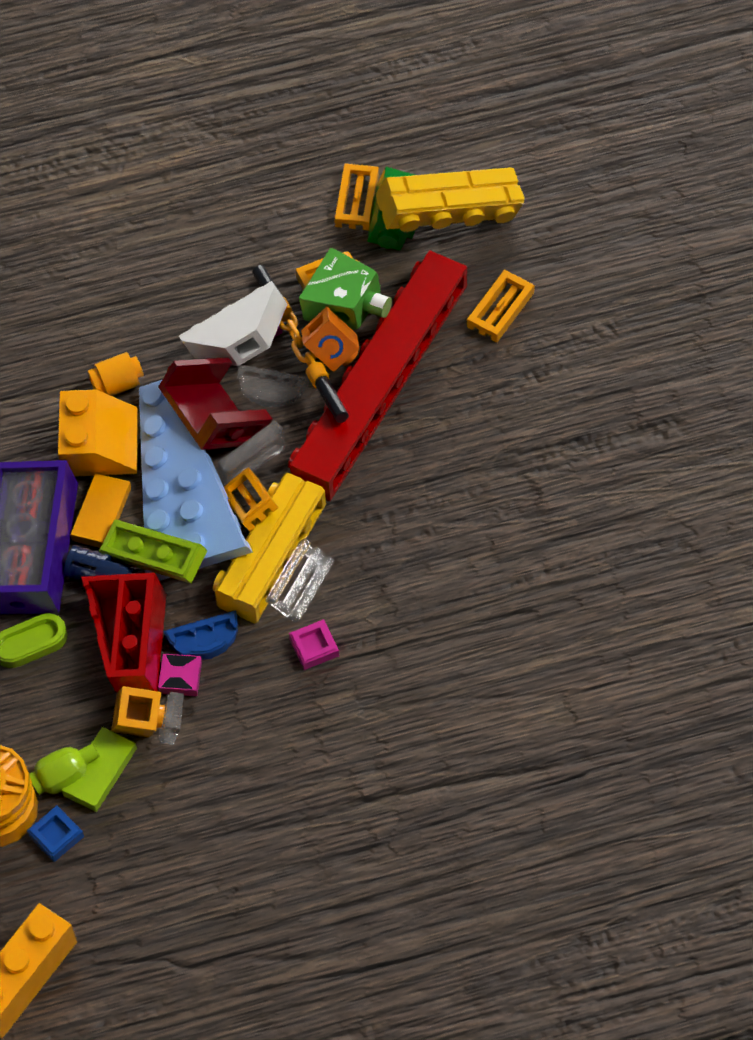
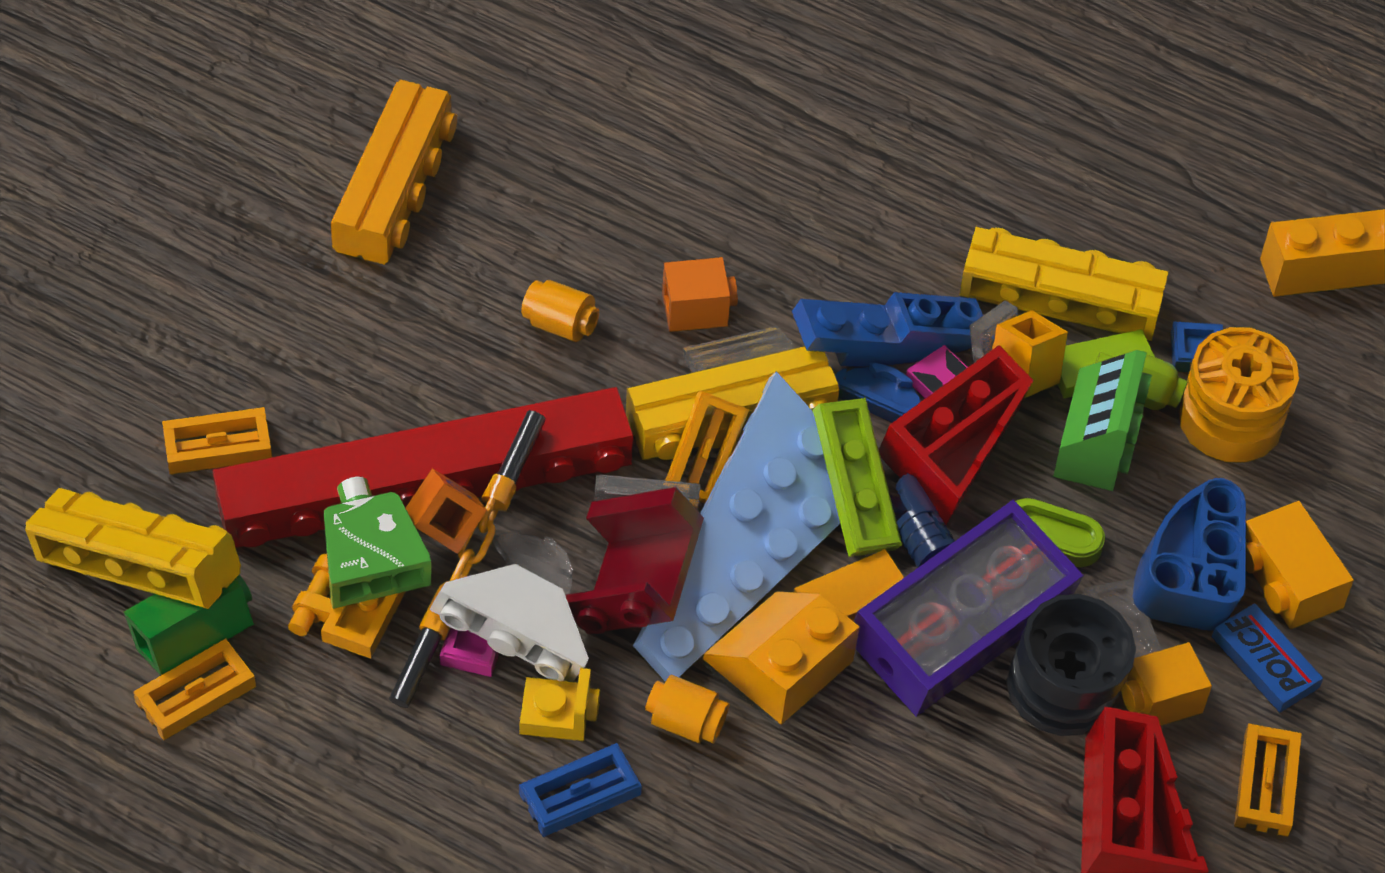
camera: 140 degrees left, 5 degrees down
(53, 706) = (1103, 421): none -> bright green slope
(121, 330) = (589, 806): none -> blue tile
(167, 791) = (1063, 282): none -> yellow brick
(169, 329) = (559, 707): none -> yellow bracket
(233, 665) = (887, 334): none -> blue slope
(314, 644) = (781, 297): dark pink tile -> none
(359, 590) = (697, 294): none -> orange brick
(420, 516) = (560, 310): none -> light orange brick
(605, 511) = (393, 172): none -> light orange brick

